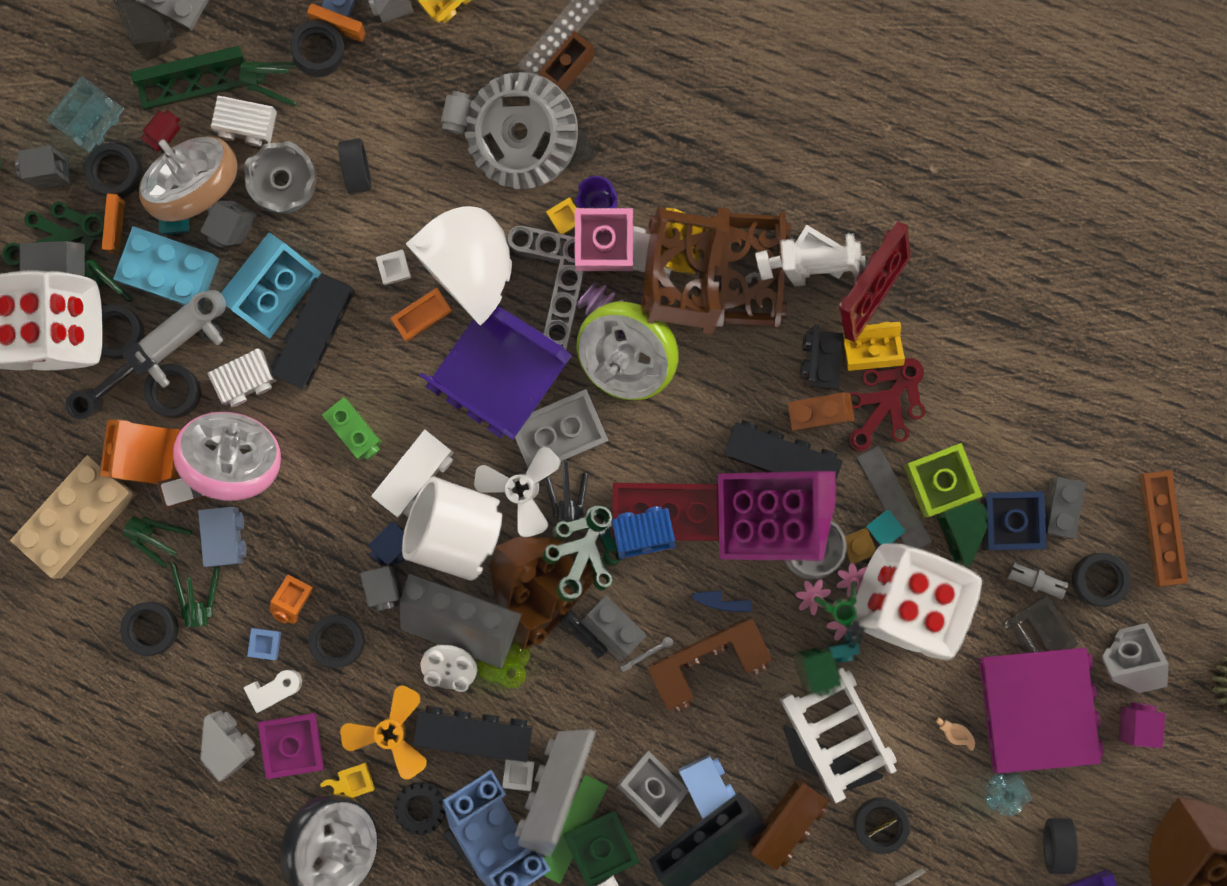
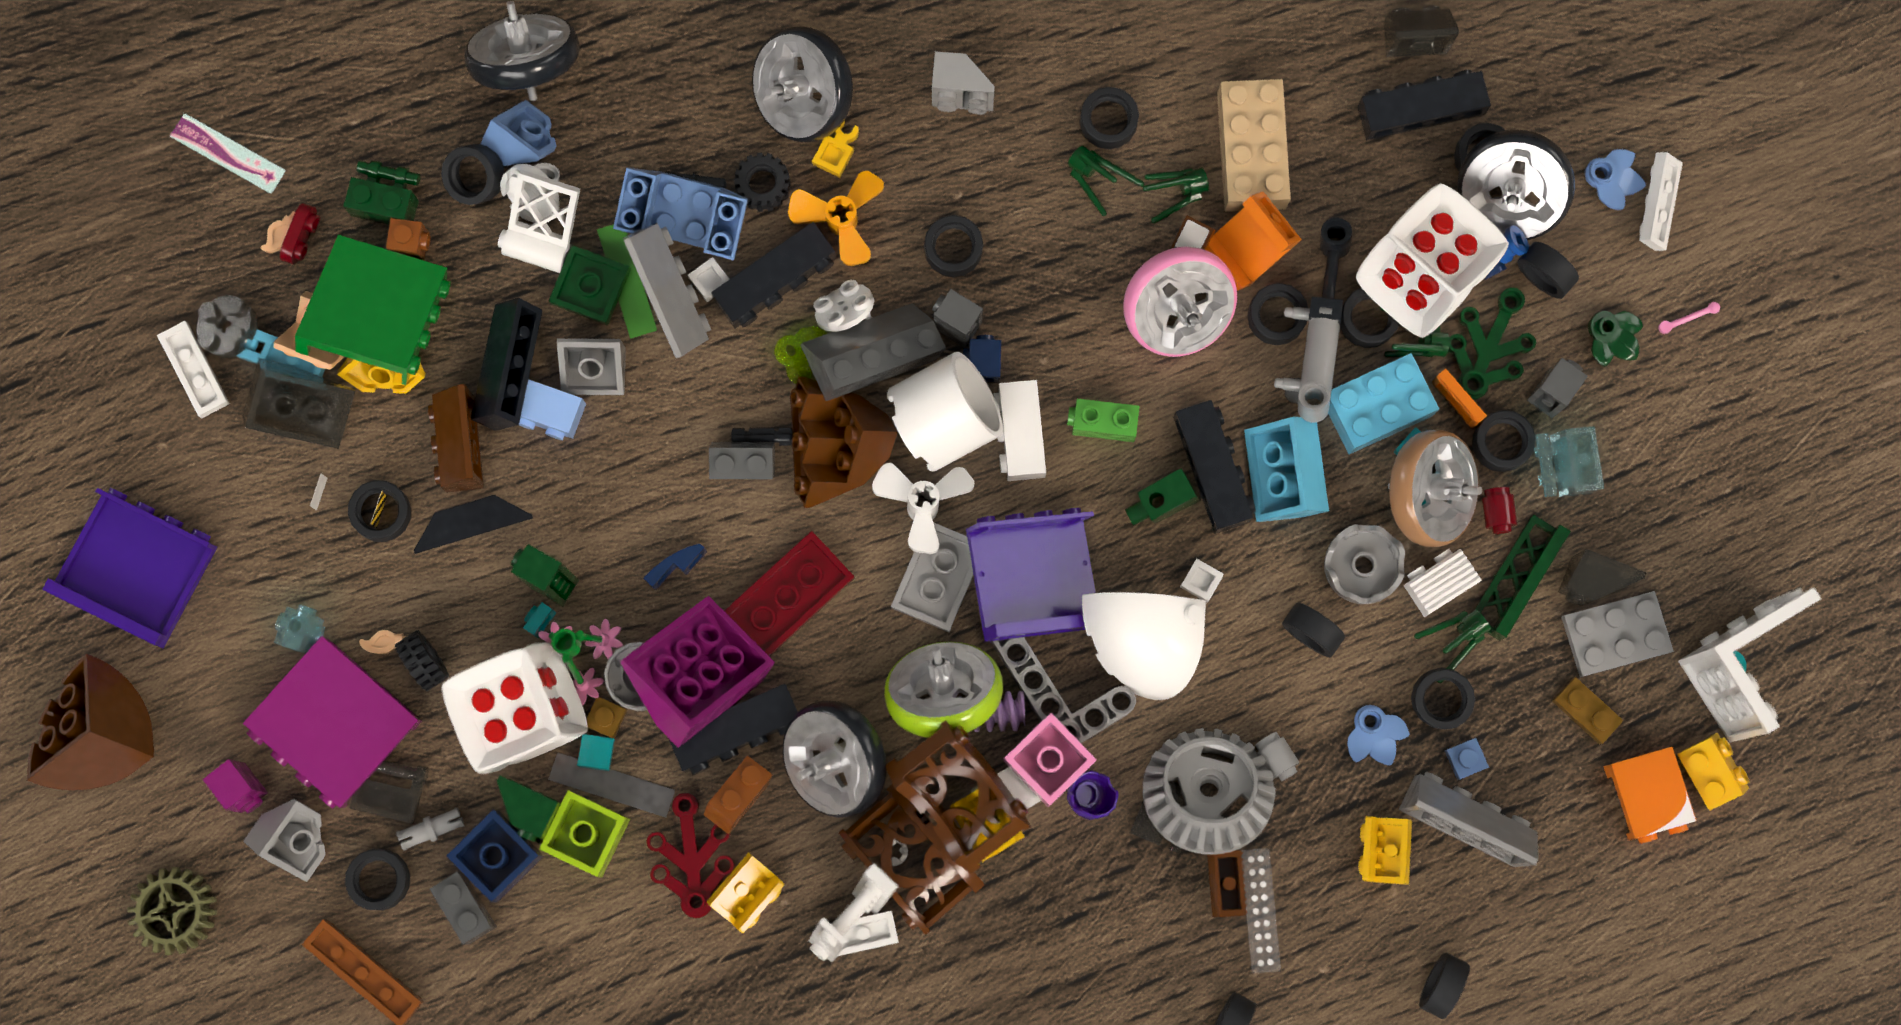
camera: 130 degrees right, 5 degrees down
(53, 257) = (1473, 321): dark grey brick -> none
(222, 536) = (1123, 239): sand blue brick -> none
(228, 223) = (1366, 484): dark grey brick -> none
(242, 377) = (1232, 377): white brick -> none
(264, 644) = (1008, 190): medium blue plate -> none
(284, 685) = (961, 168): white leg -> none
(289, 600) = (1021, 242): orange bracket -> none
(291, 745) = (910, 134): magenta plate -> none
(344, 24) = (1450, 736): orange tile -> none
(353, 338) = (1177, 496): none -> dark green torso
(381, 64) = (1376, 740): none -> medium blue plate
(421, 314) = (1142, 563): orange tile -> none
(563, 216) = (1106, 755): yellow plate -> none
(567, 509) = (869, 520): black plant -> none
(586, 550) = (824, 499): plant -> none
(643, 532) = (789, 557): blue brick -> none
(666, 643) = (689, 492): light grey hinge -> none
(724, 374) = (859, 758): none -> flat silver wheel
(745, 642) = (660, 464): reddish brown plate -> none
(766, 264) = (897, 868): white tile -> none
(823, 358) = (778, 842): black bracket -> none
(823, 757) = (476, 518): white fence -> none
(853, 634) = (540, 633): black axle -> none
(875, 281) = (793, 944): dark red plate -> none
(945, 695) = (422, 660): none -> black tyre
(1060, 846) = (217, 628): black tyre -> none

